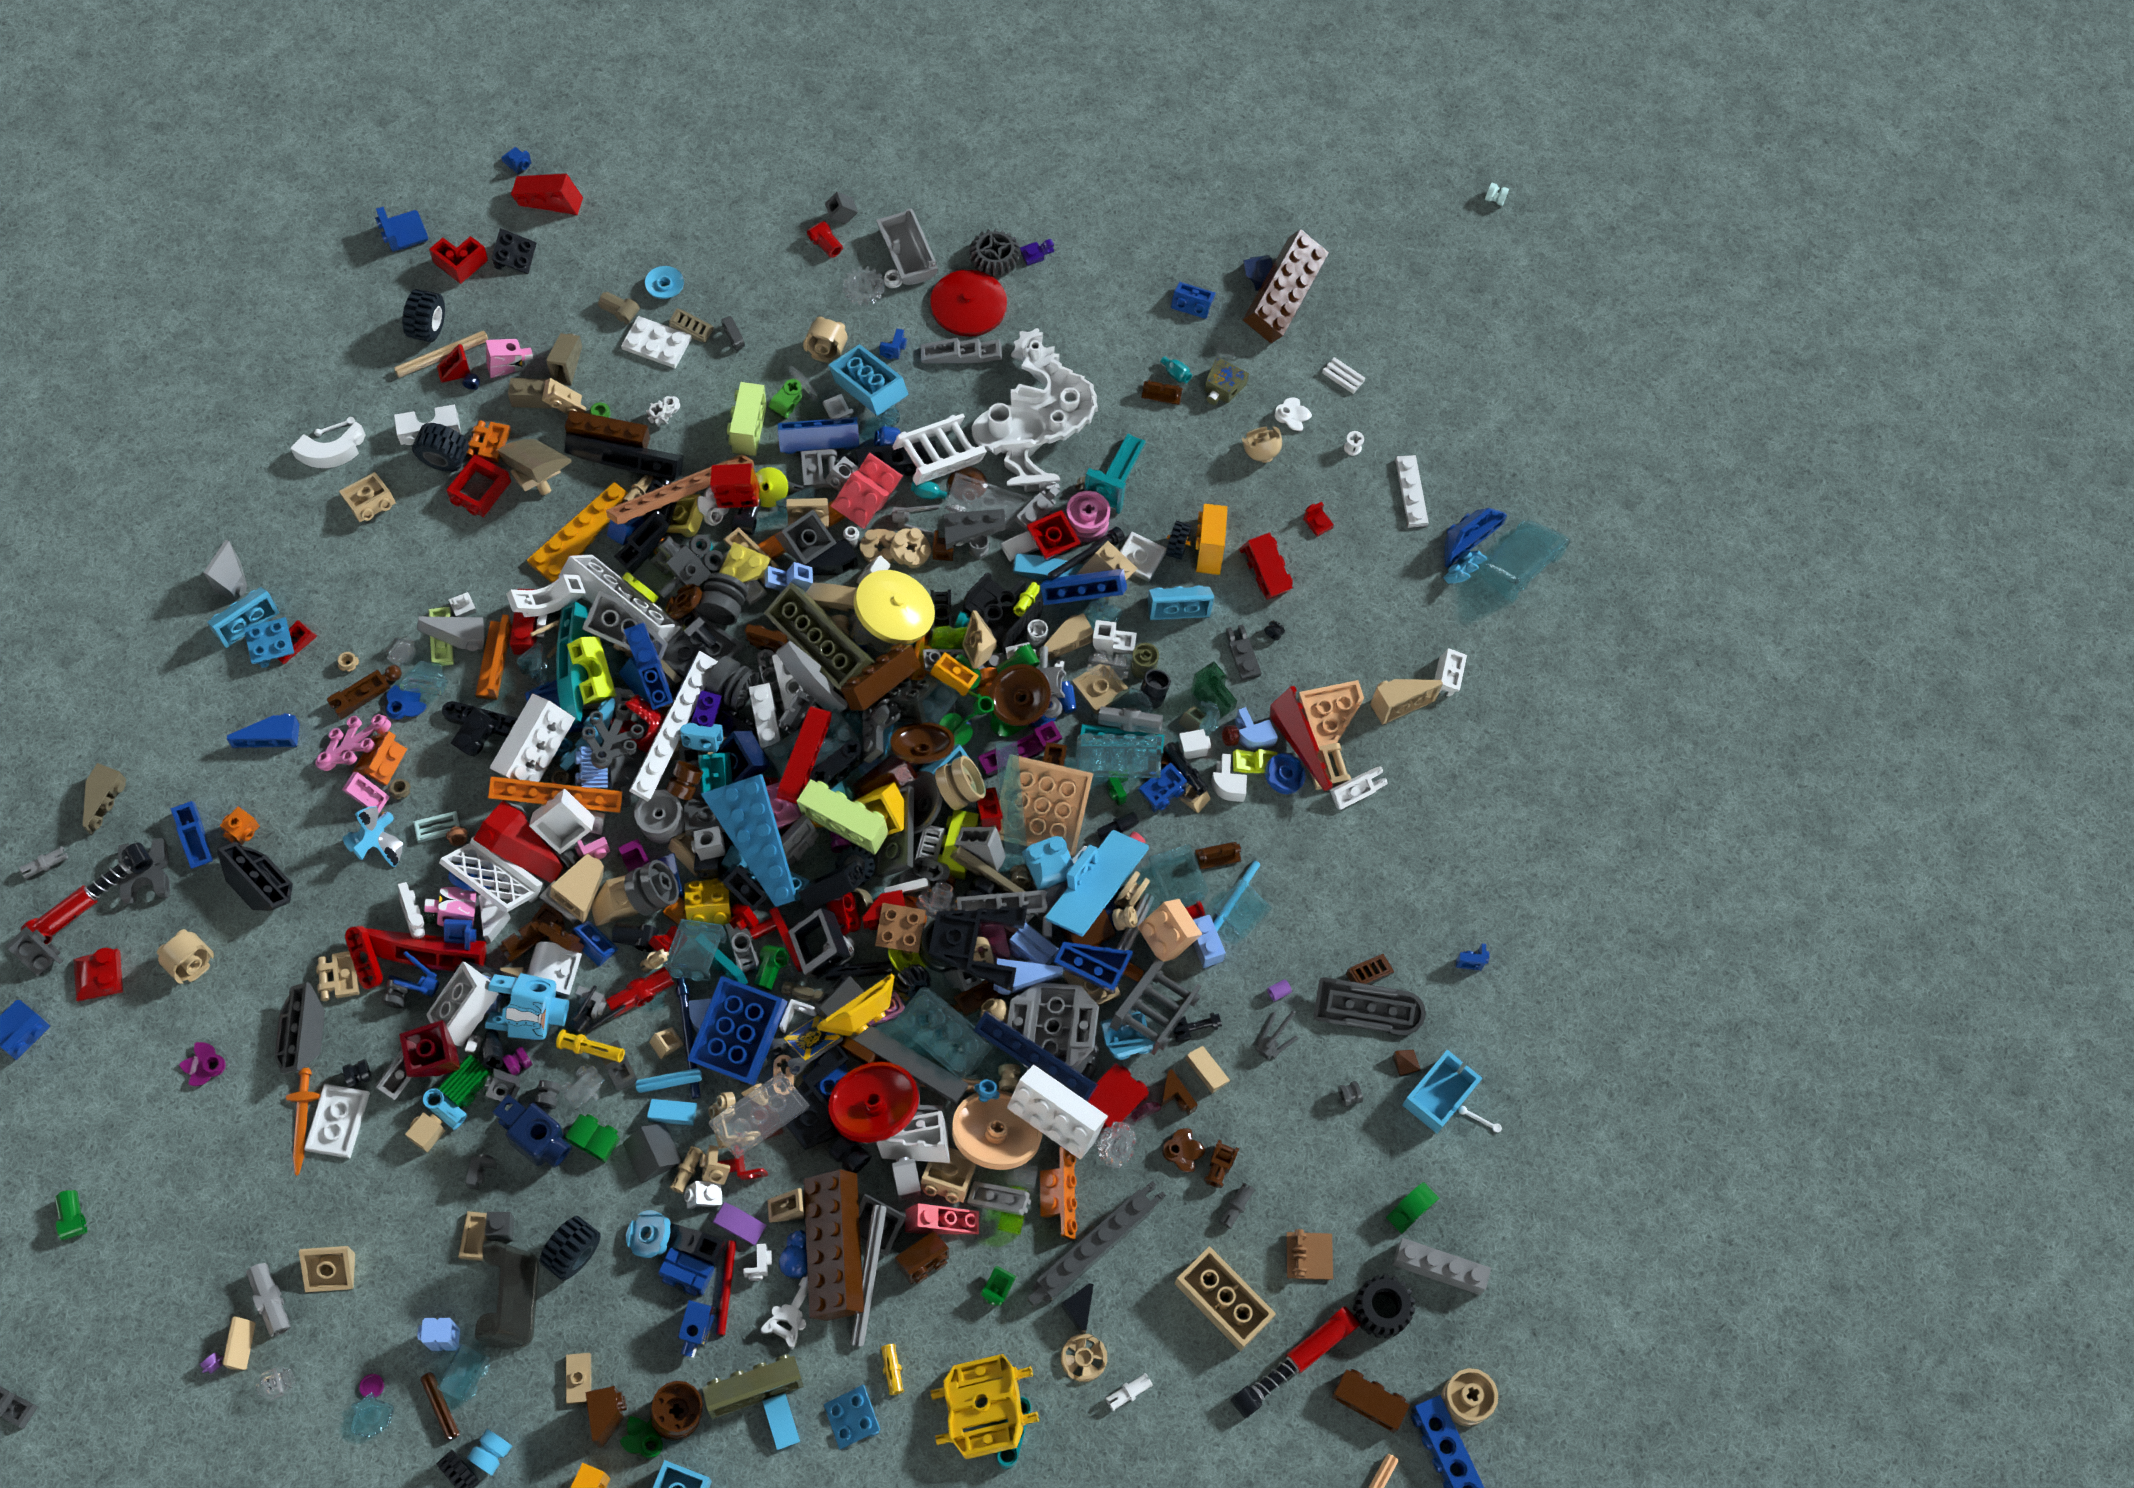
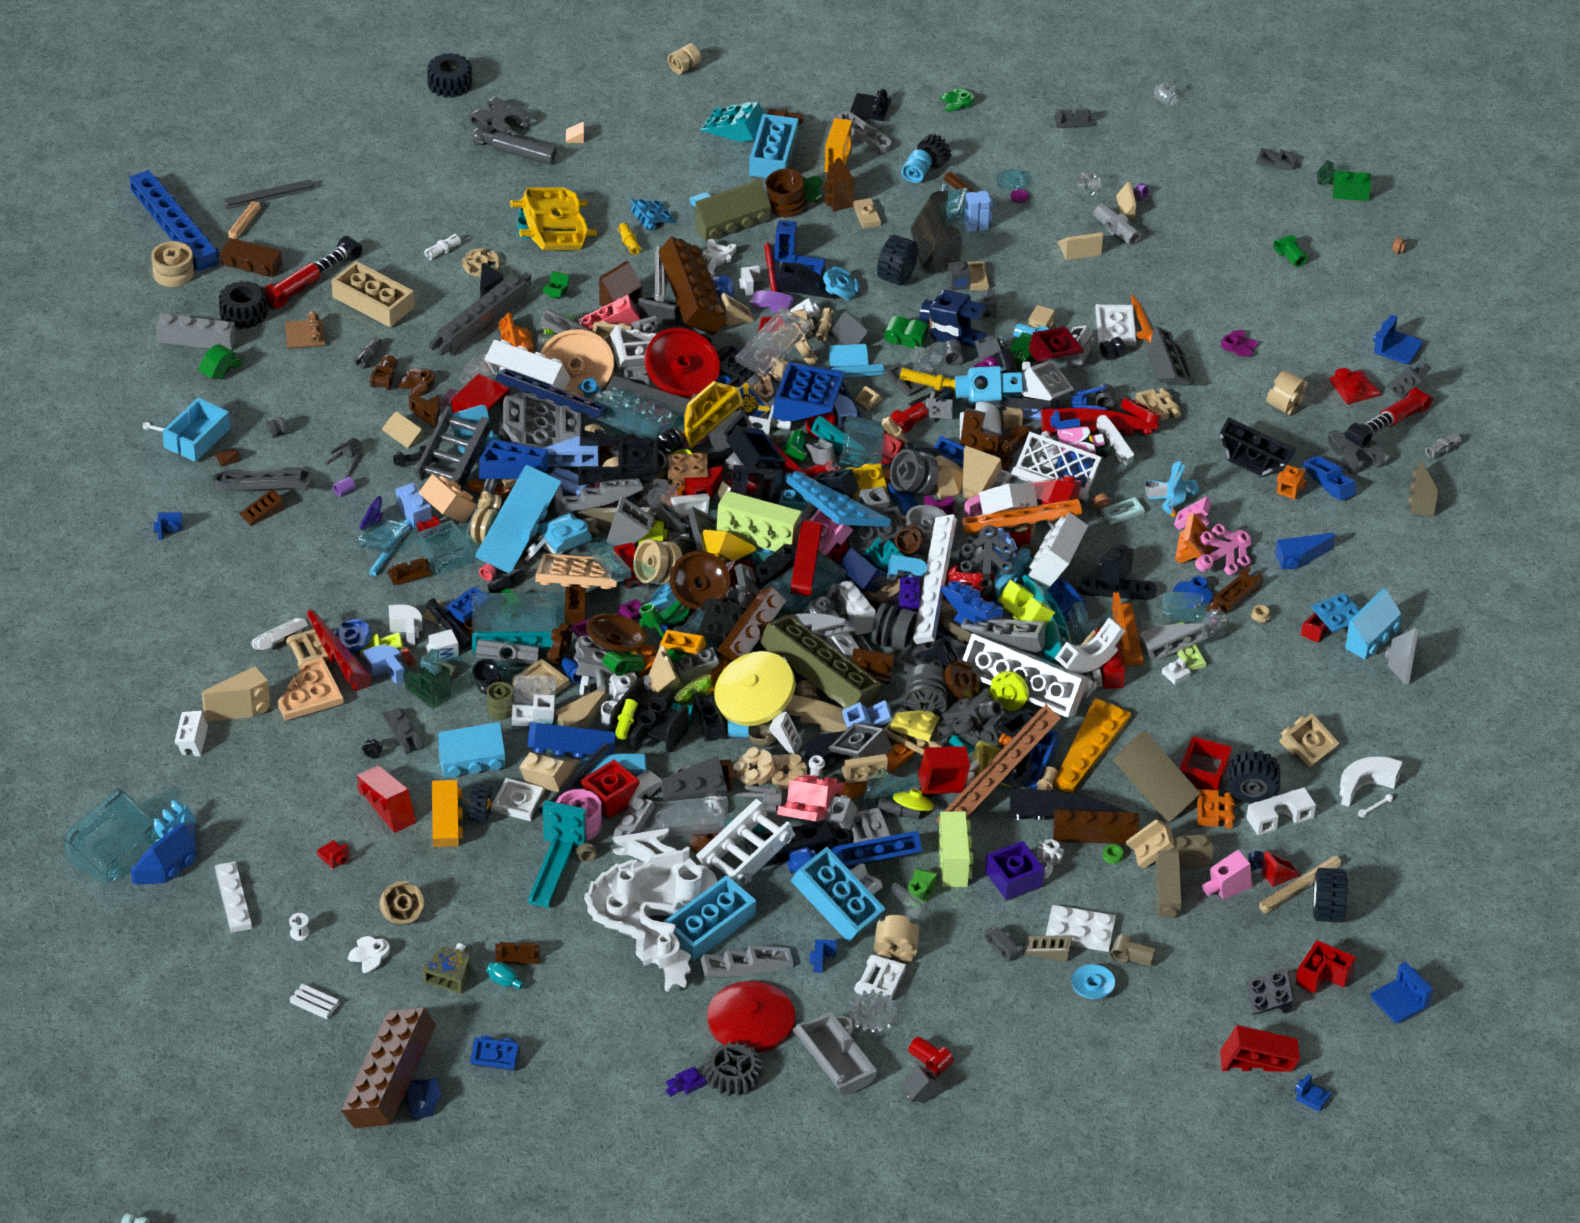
camera: 175 degrees right, 20 degrees down
(399, 783) = (1167, 529): dark tan plate -> none
(698, 394) = (1014, 870): none -> dark purple brick
(845, 312) = (887, 978): none -> white plate
(983, 388) = (712, 917): none -> medium azure brick
(1074, 716) = (561, 643): none -> reddish brown plate
(1253, 928) = (373, 514): none -> dark purple dish

